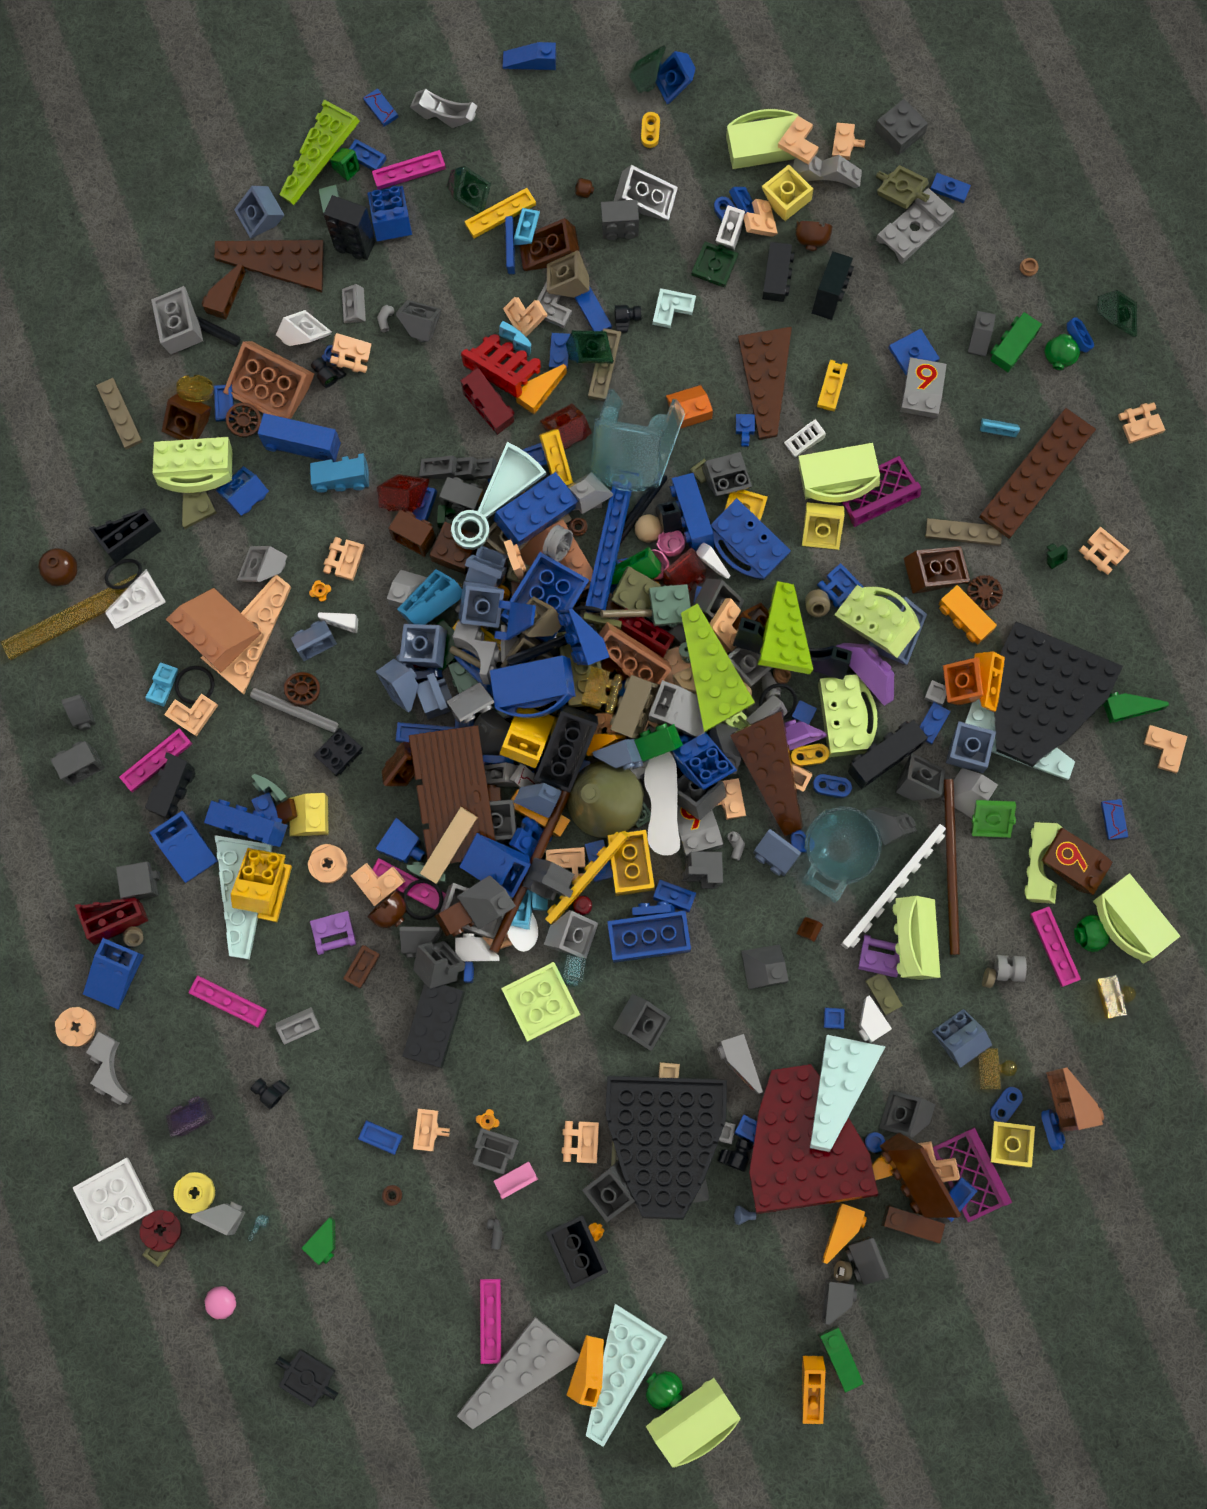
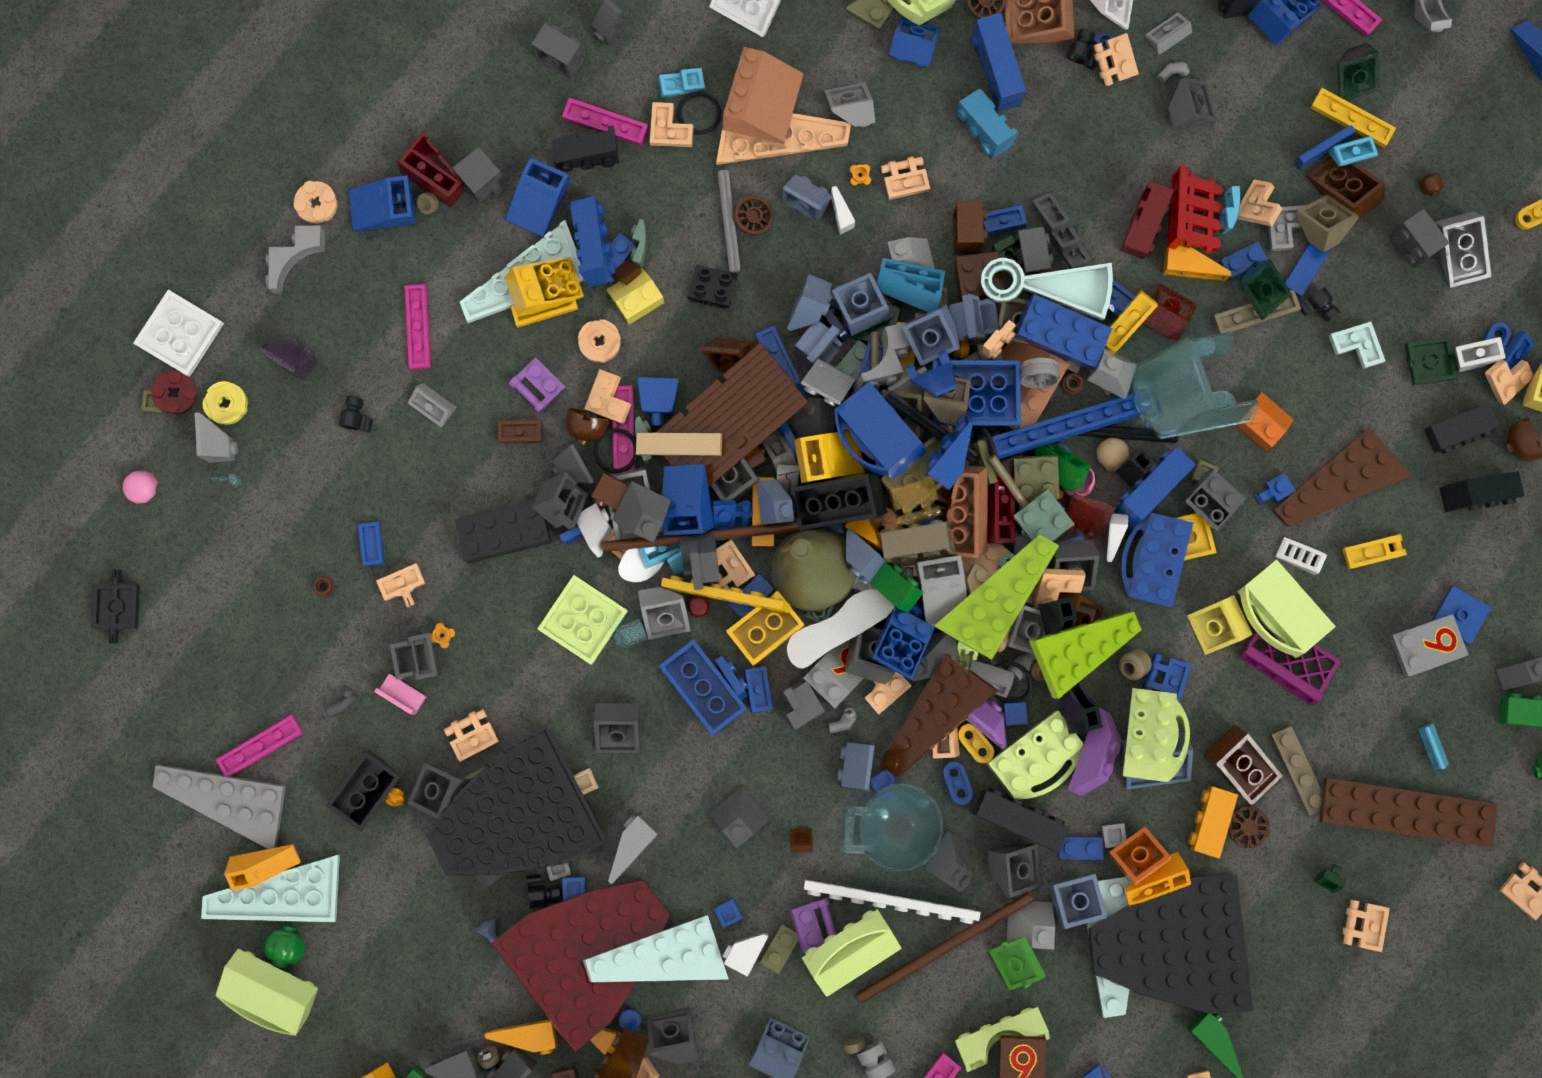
camera: 55 degrees right, 5 degrees up
(322, 1243) = (243, 548): green slope -> none
(402, 493) = (1003, 194): clear red slope -> none
(675, 540) = (1116, 487): bright pink hair -> none

